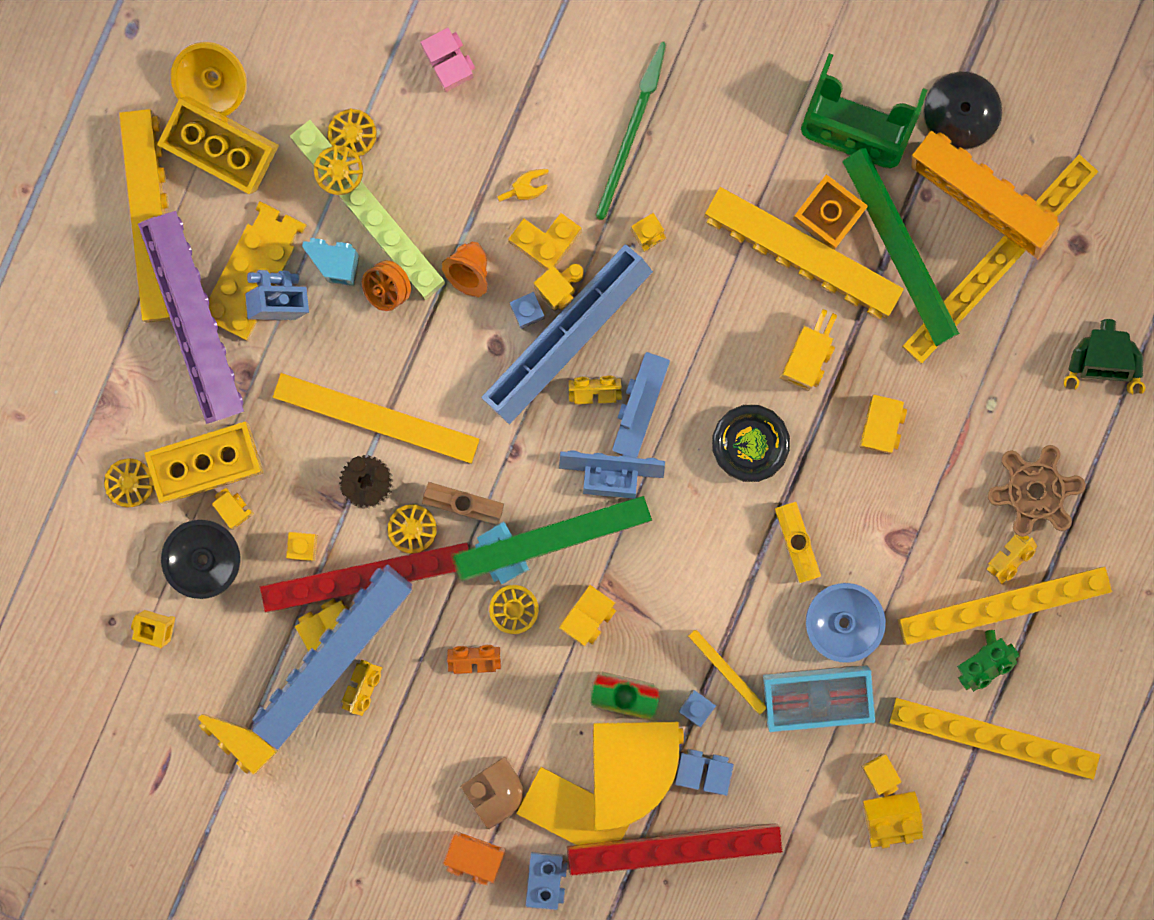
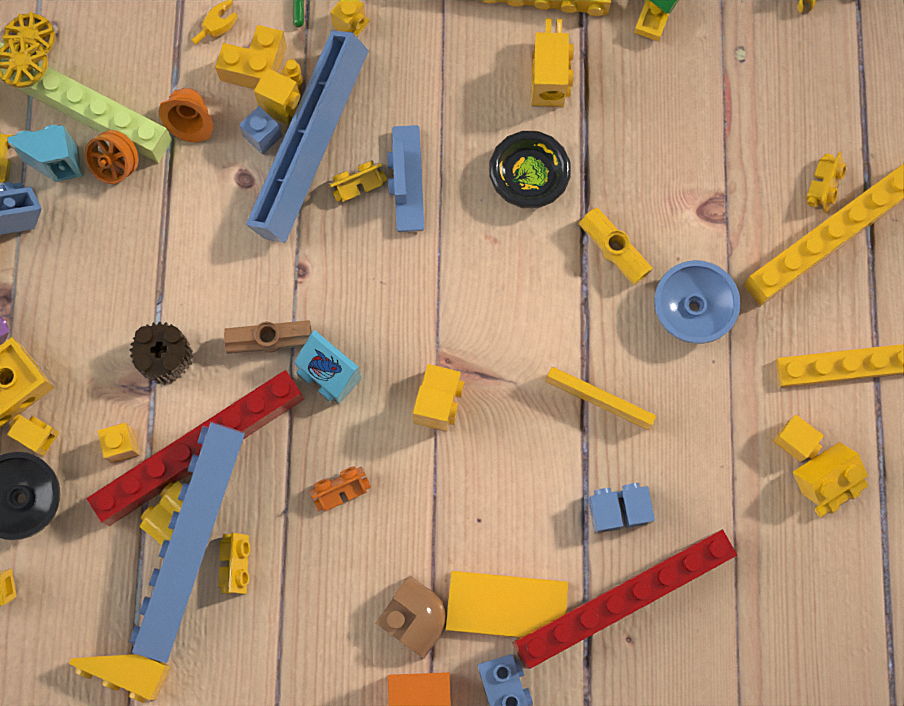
camera: 25 degrees left, 10 degrees down
(376, 418) = (149, 290): yellow tile -> none
(412, 528) = (226, 382): yellow wheel -> none
(513, 609) = (360, 422): yellow wheel -> none
(551, 538) = (366, 331): green tile -> none
(611, 474) = (405, 250): medium blue bracket -> none
(625, 695) = (510, 460): green piece -> none
(632, 769) = (546, 534): yellow brick -> none
(697, 708) = (586, 446): medium blue brick -> none
(819, 698) = (704, 387): clear brick -> none
(882, 424) = (647, 106): yellow brick -> none
(991, 661) = (853, 287): green brick -> none
(1040, 473) = (822, 94): medium nougat plate -> none

